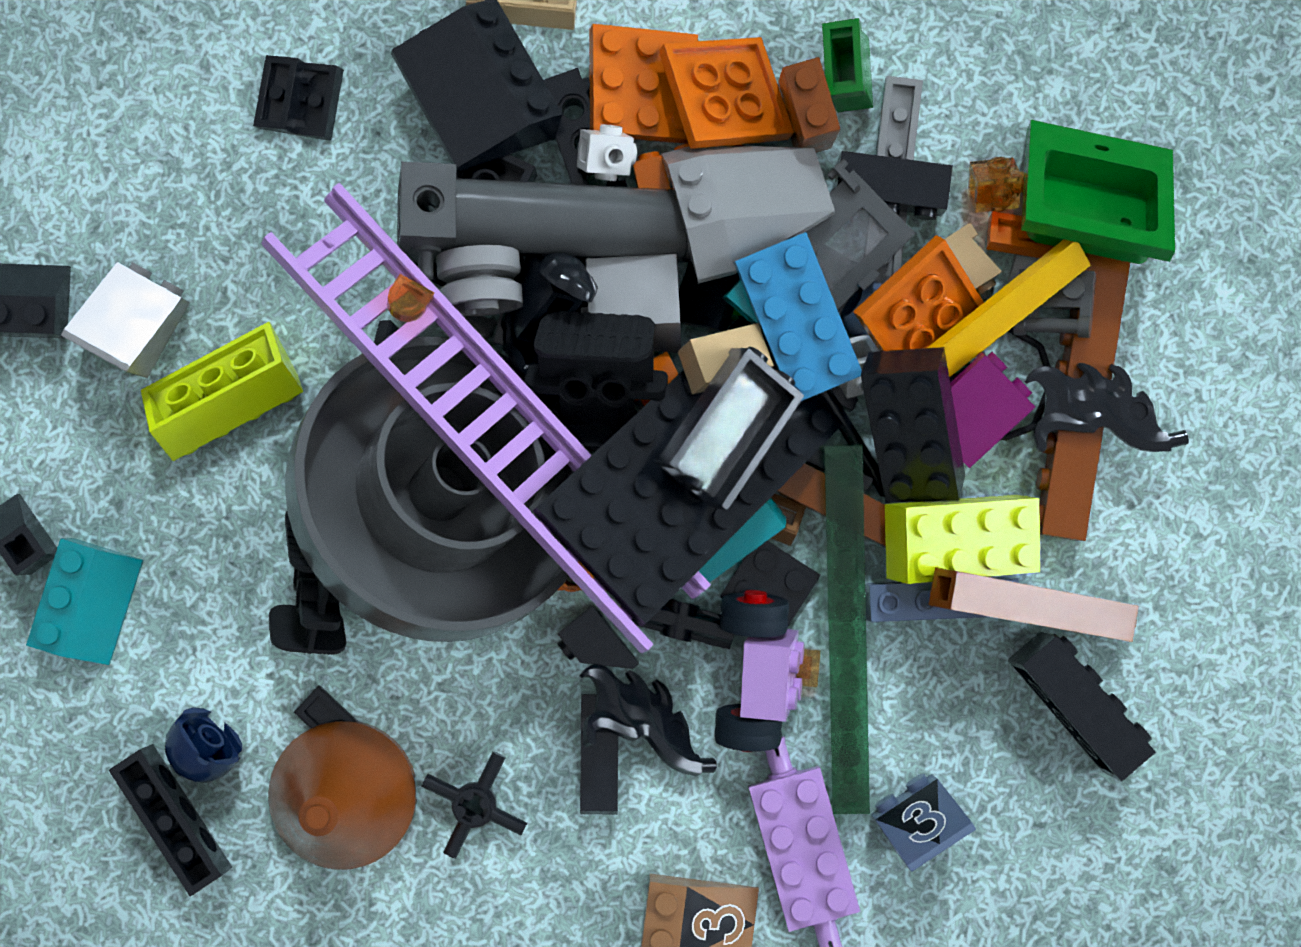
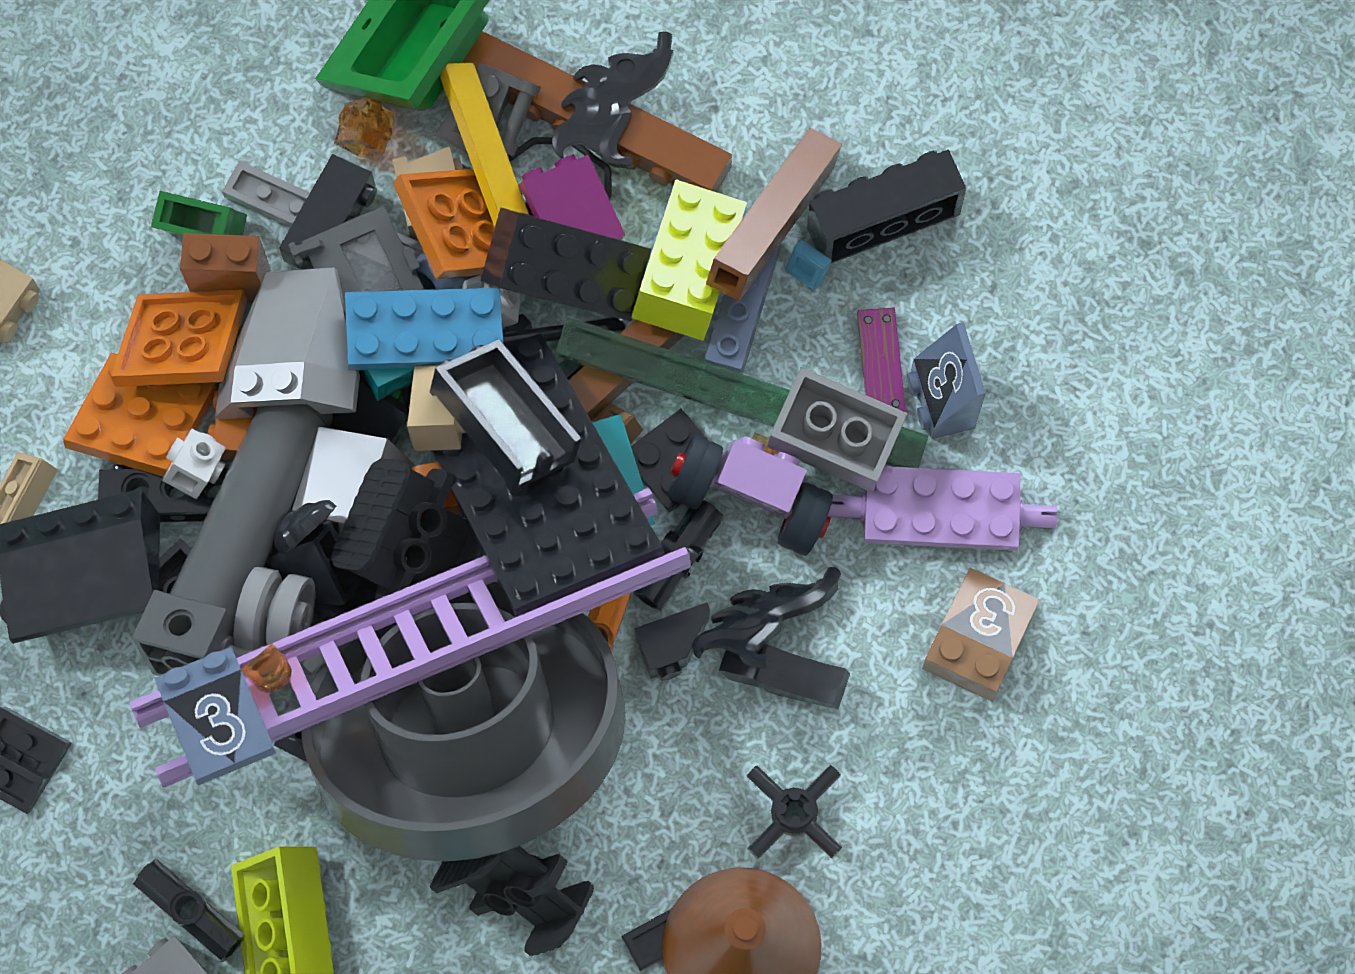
camera: 65 degrees left, 15 degrees down
(222, 277) = (172, 893): none -> black piece
(334, 269) = (214, 716): none -> sand blue slope
(837, 735) = (836, 429): none -> light grey brick
(928, 745) = (881, 356): none -> magenta tile
(1000, 647) = (808, 265): none -> medium azure tile
(1006, 236) = (419, 128): orange plate -> none

